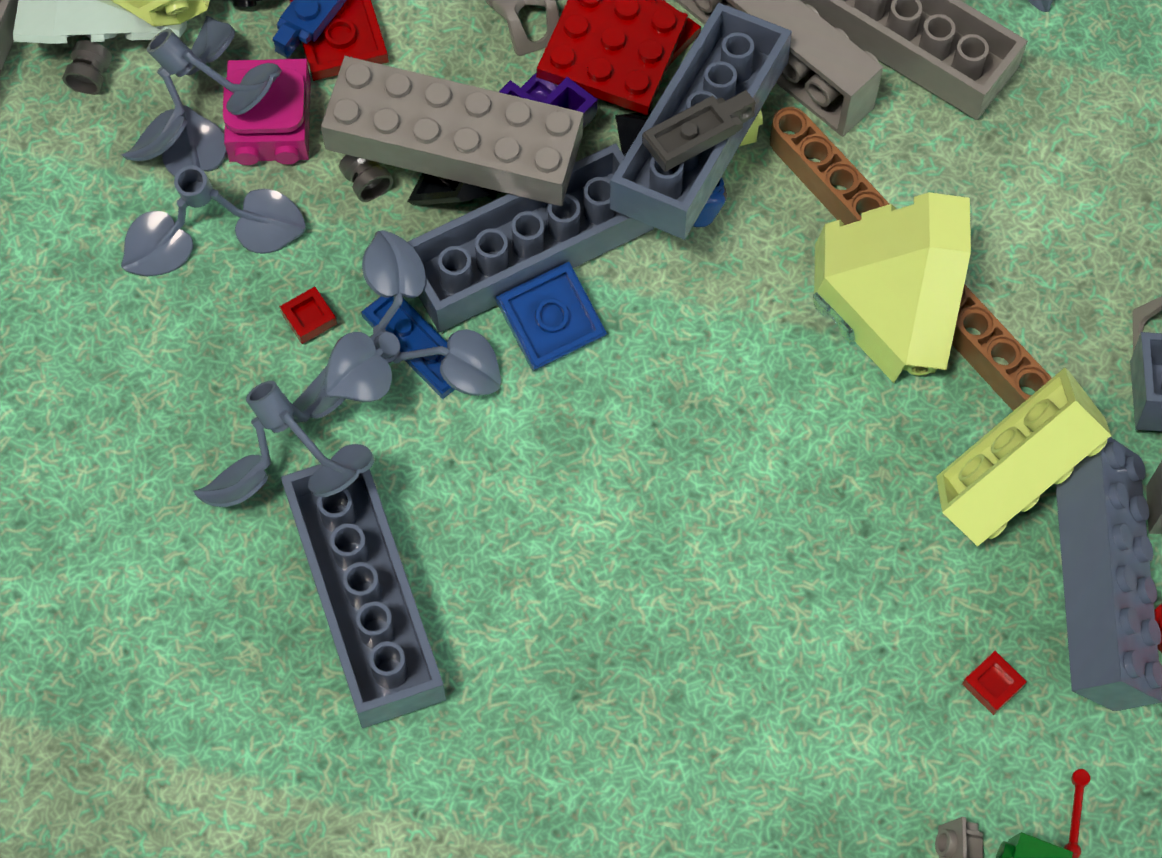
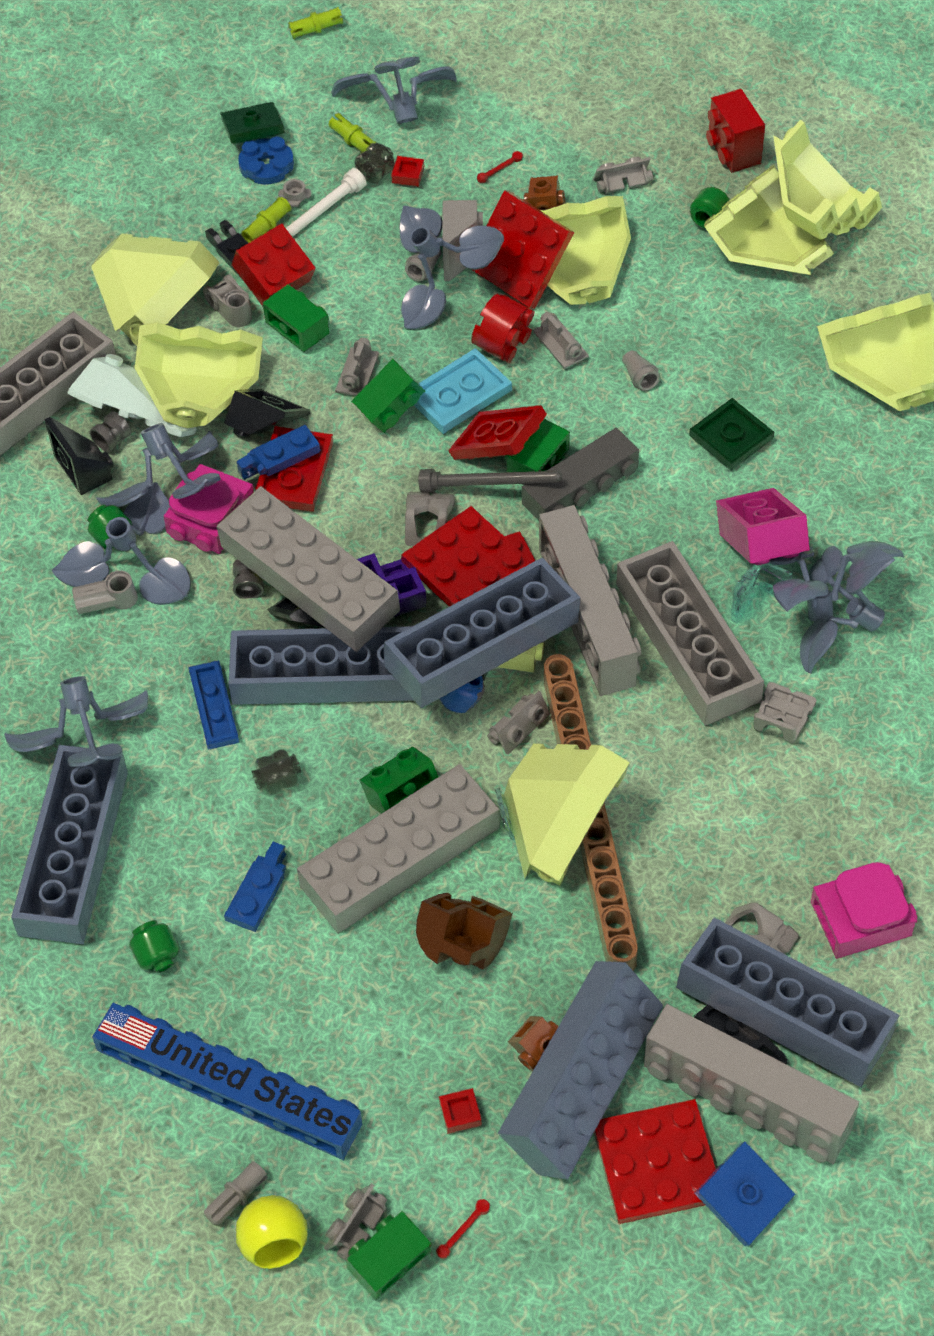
camera: 30 degrees right, 10 degrees down
(70, 115) = (79, 457): none -> black slope
(155, 183) = (99, 519): none -> green head
(204, 270) = (106, 593): none -> light grey piece
(308, 315) = (151, 654): red plate -> none
(360, 362) = (150, 699): sand blue plant -> none
(536, 663) = (154, 946): none -> green head
(545, 389) = (276, 771): none -> clear smoke piece
(550, 316) = (312, 725): blue plate -> none
(607, 538) = (258, 889): none -> blue hinge
(697, 129) = (463, 632): dark grey hinge -> none
(697, 336) = (398, 779): none -> green brick
(719, 777) = (228, 1080): none -> blue brick
(741, 415) = (398, 848): none -> light grey brick
(782, 191) = (524, 719): none -> light grey hinge
(874, 475) = (461, 929): none -> reddish brown brick
(1022, 458) = (563, 962): yellowish green slope -> none
(1034, 564) = (532, 1040): none -> dark orange brick
(1054, 60) = (784, 706): none -> light grey piece

